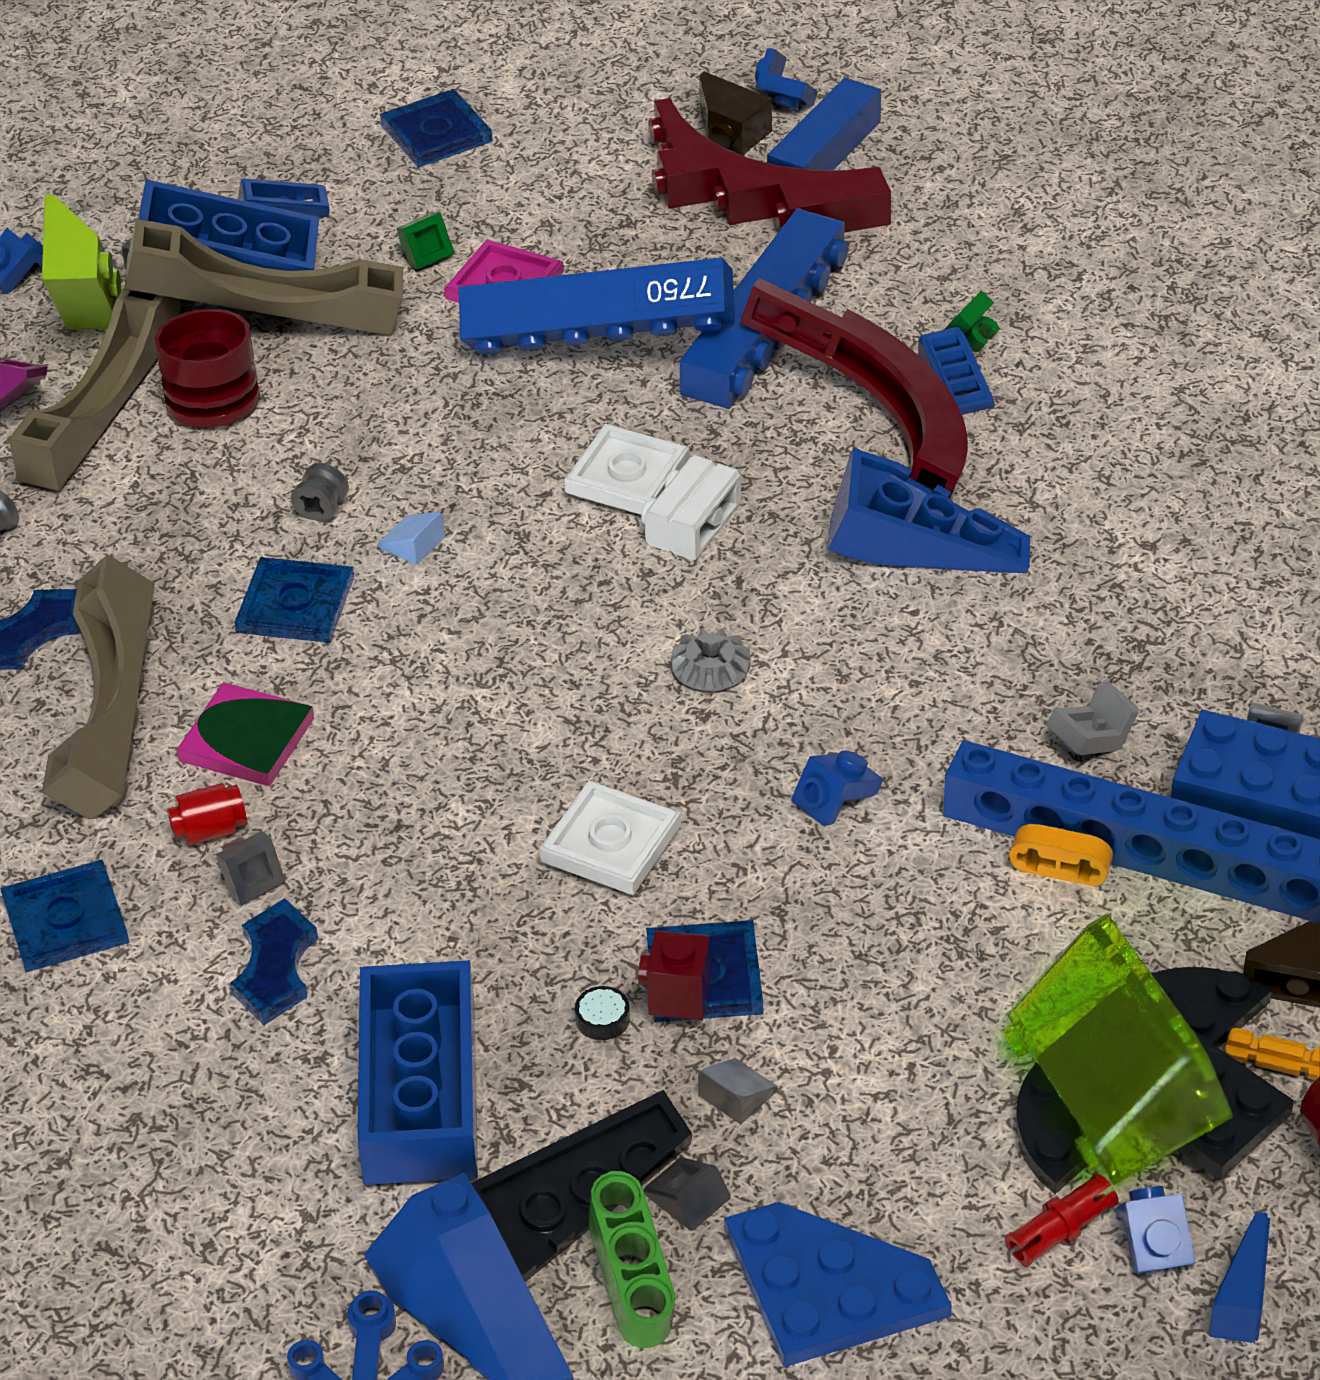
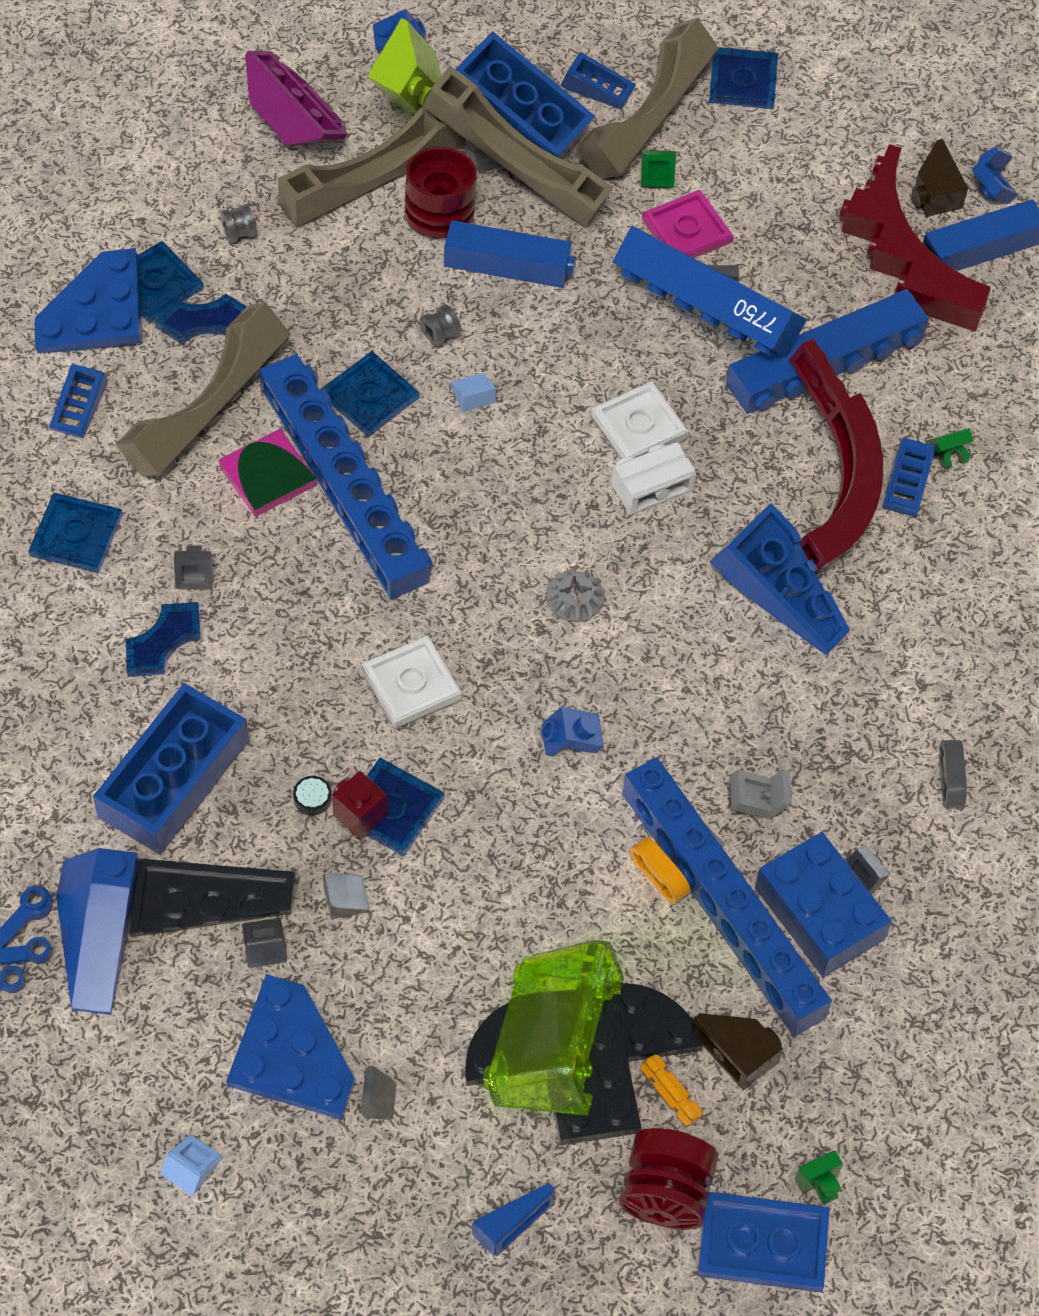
camera: 30 degrees right, 15 degrees up
(207, 813) = (199, 516): red brick -> none
(334, 392) = (508, 254): none -> blue brick
(346, 685) = (396, 574): none -> blue brick
(362, 138) = (681, 58): none -> dark tan arch
(631, 1284) = (188, 947): bright green beam -> none
(968, 1261) = (378, 1095): none -> flat silver slope
(1061, 1219) = (448, 1106): red pin -> none
(1156, 1230) = (494, 1150): bracket -> none
(1266, 597) = (952, 773): none -> dark grey beam

